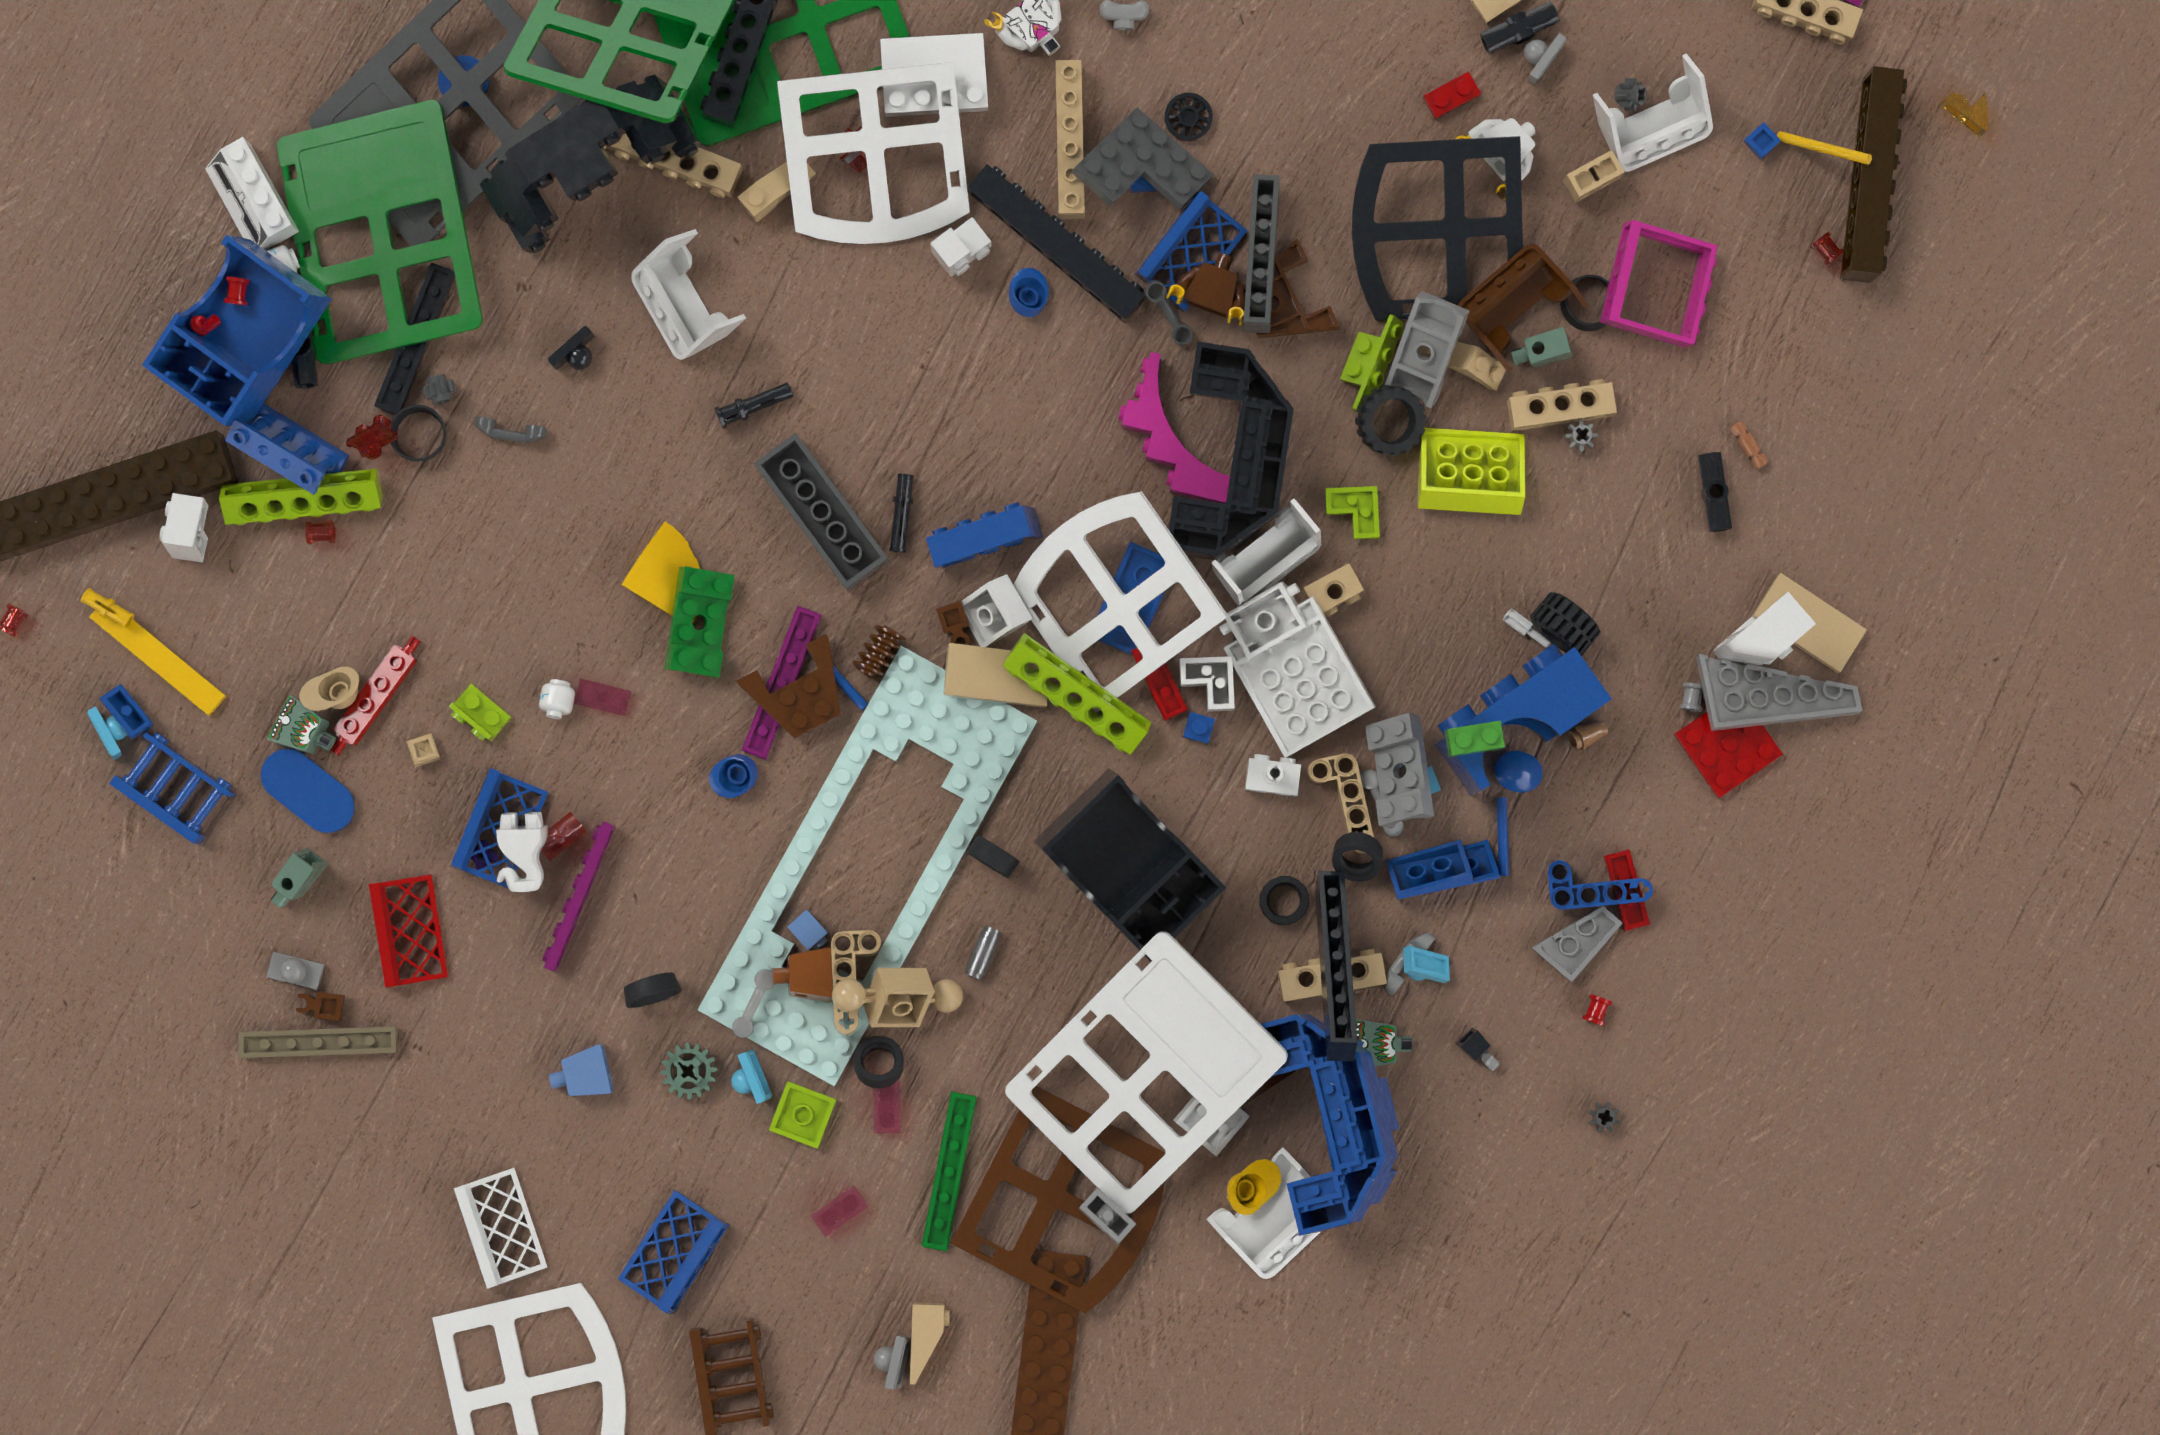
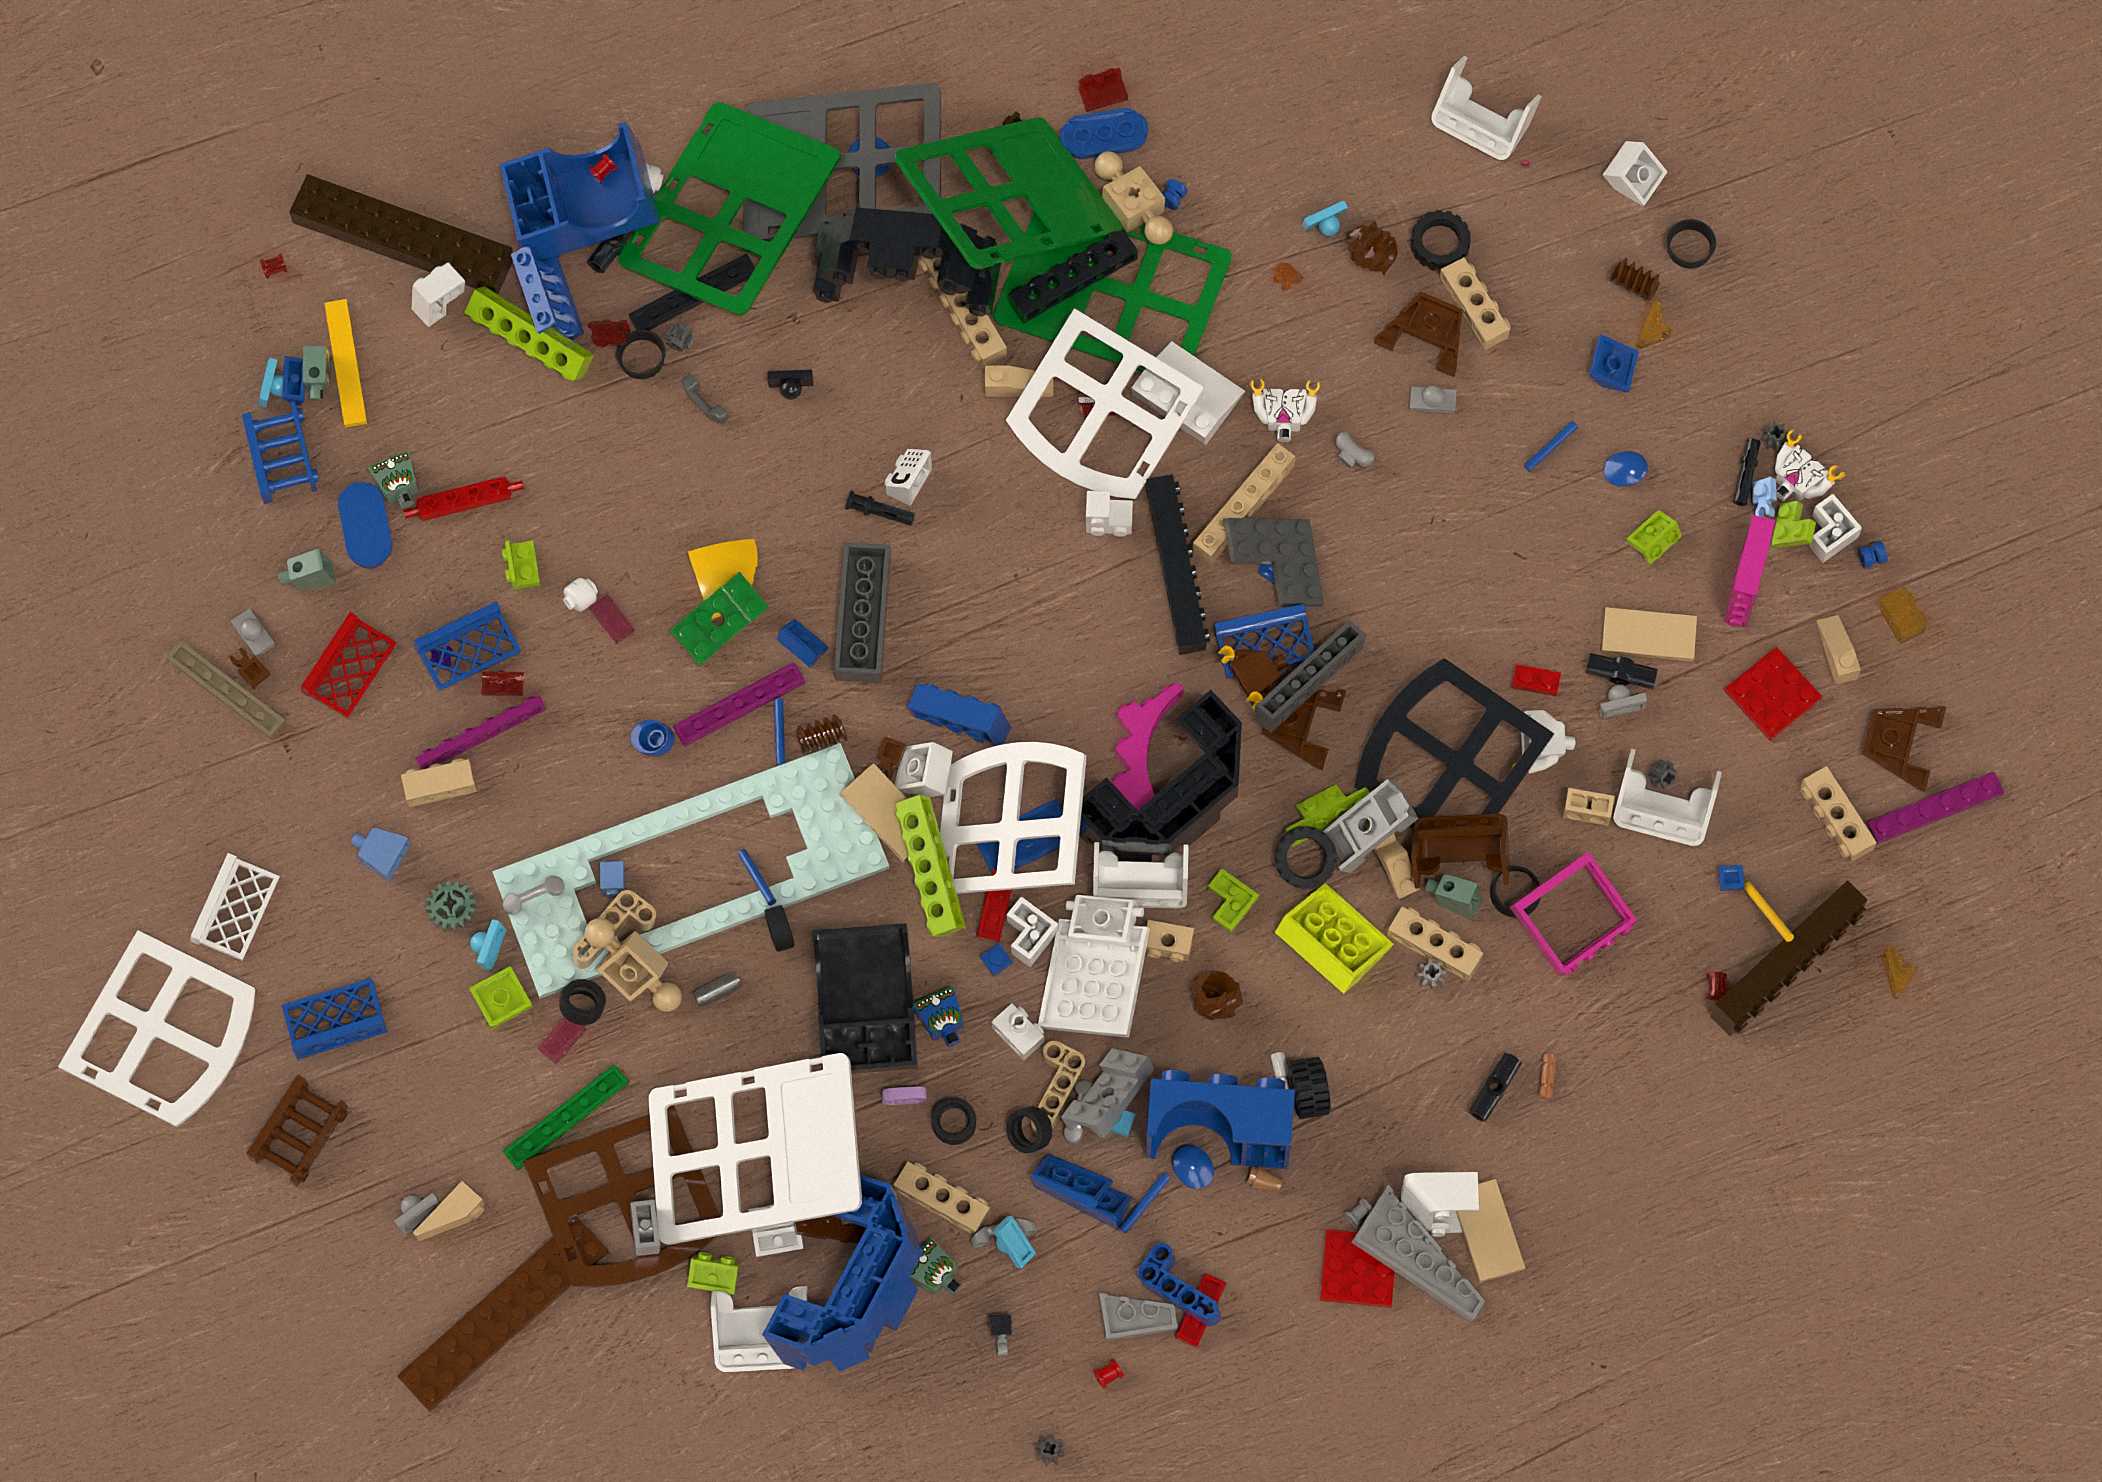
camera: 45 degrees right, 15 degrees down
(122, 616) = (337, 292): yellow pin -> none
(131, 681) = (316, 362): none -> sand green torso
(203, 327) = (560, 173): red arm -> none
(250, 195) = (667, 121): white slope -> none
(320, 532) = (521, 367): clear red bush -> none
(332, 689) = (439, 471): tan piece -> none
(423, 750) = (463, 558): tan tile -> none
(523, 848) = (470, 669): white hips -> none
(580, 970) = (438, 782): none -> tan brick
(651, 990) = (479, 840): black tyre -> none
(674, 301) = (887, 399): white windscreen -> none
(754, 353) = (909, 475): none -> white slope
(788, 581) = (801, 642): none -> blue slope
(805, 701) = (745, 727): reddish brown wing -> none
(807, 975) = (584, 902): dark orange torso -> none
(839, 1211) = (468, 1081): clear pink plate -> none
(904, 482) = (926, 647): black pin -> none
(933, 826) = (757, 877): none -> blue bar
(1028, 292) = (1129, 581): blue hat -> none
(1180, 331) = (1214, 645): dark grey bar -> none
(1188, 116) = (1339, 553): black wheel -> none
(1193, 1200) = (713, 1273): none -> lime bracket
(1196, 817) = (940, 1016): none -> torso
(1222, 913) = (904, 1095): none -> lavender beam
(1253, 1186) = (761, 1293): yellow piece -> none
(1335, 966) = (945, 1177): black brick -> none
(1416, 606) = (1216, 995): none -> reddish brown hair
(1474, 738) = (1169, 1091): bright green brick -> none

